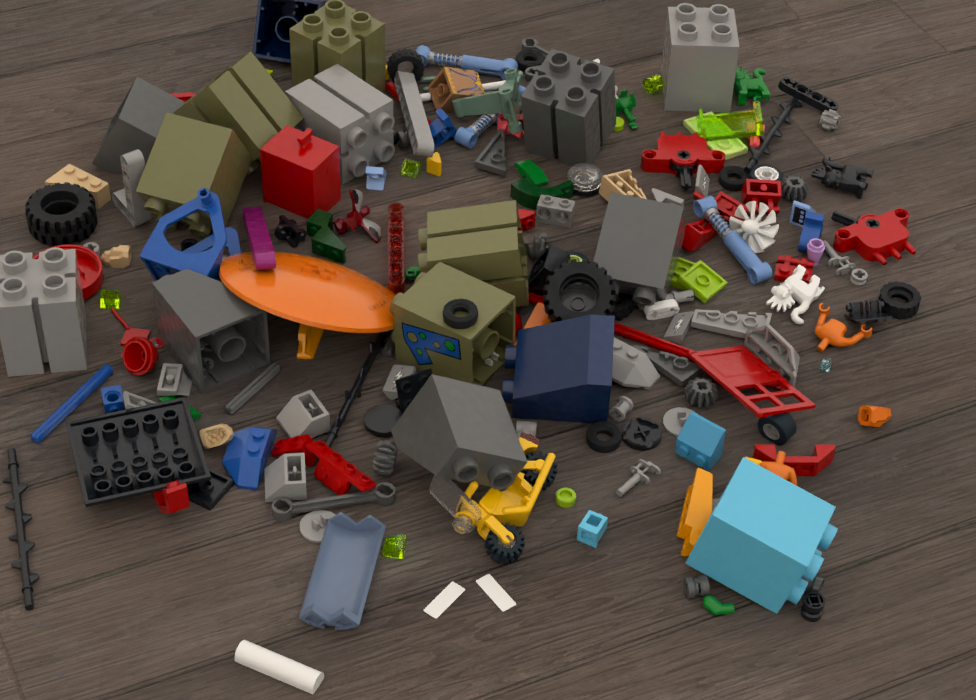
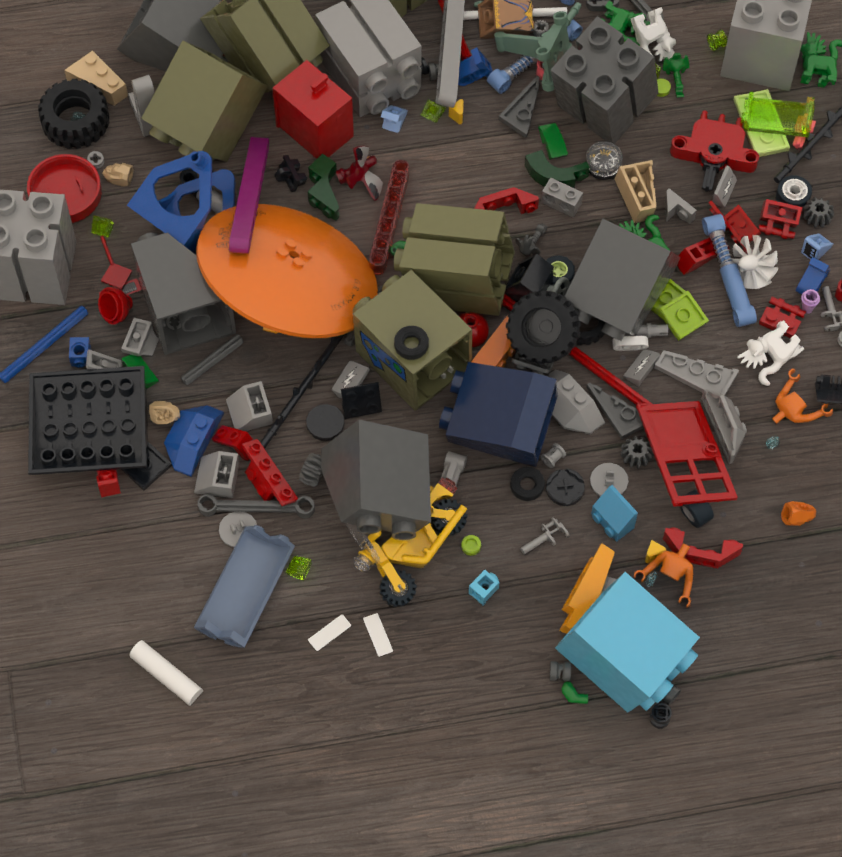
camera: 15 degrees right, 20 degrees up
(733, 185) = (755, 193): black tyre -> none

